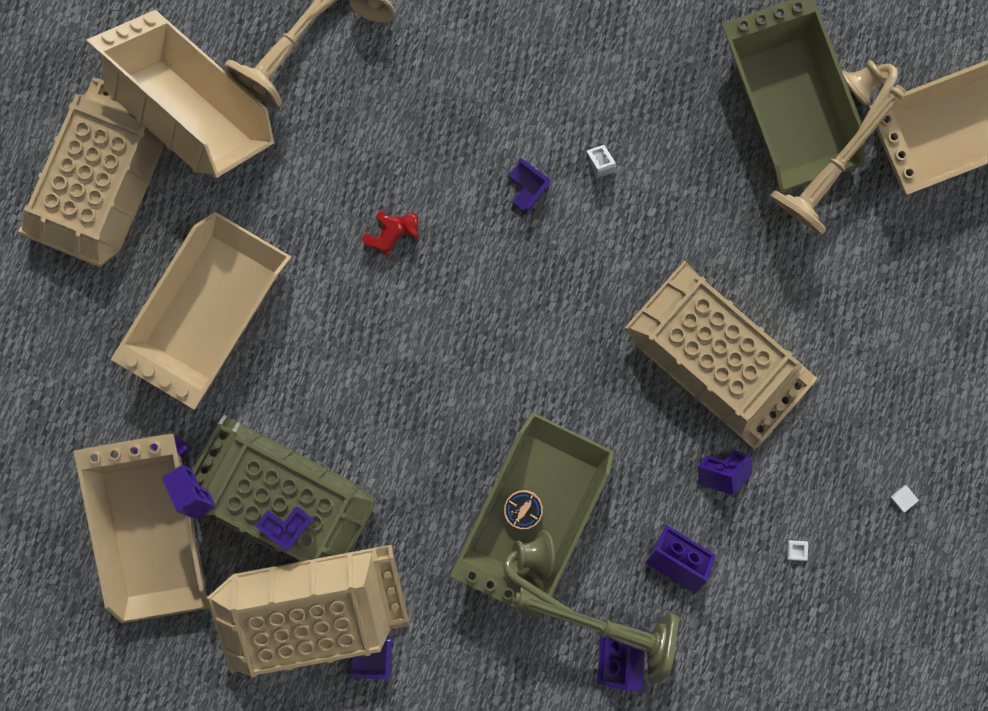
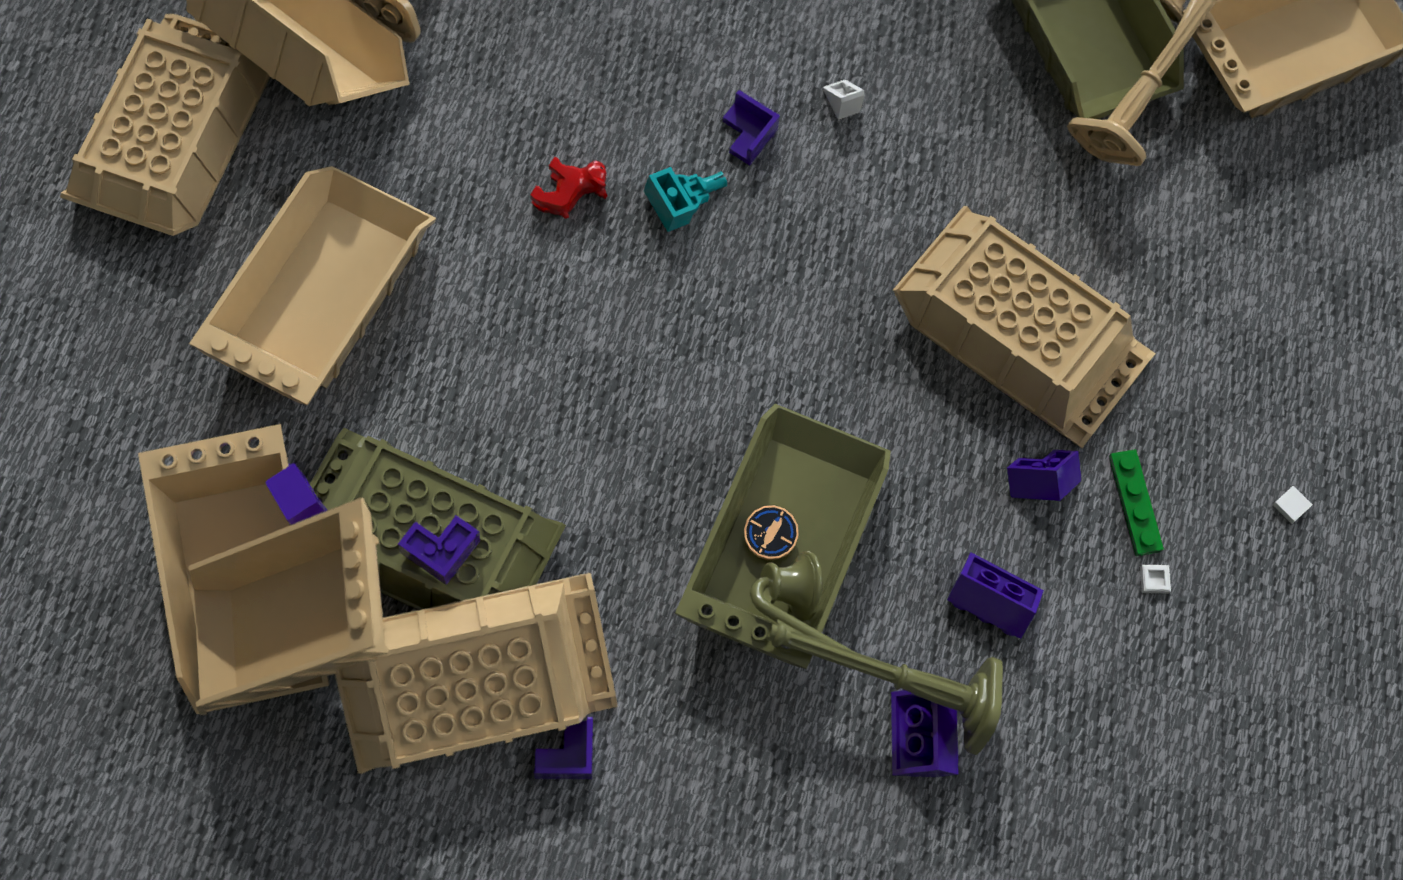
camera: 10 degrees left, 15 degrees down
(179, 581) = (288, 607): none -> tan piece
(471, 243) = (679, 196): none -> teal brick
(789, 492) = (1136, 502): none -> green plate

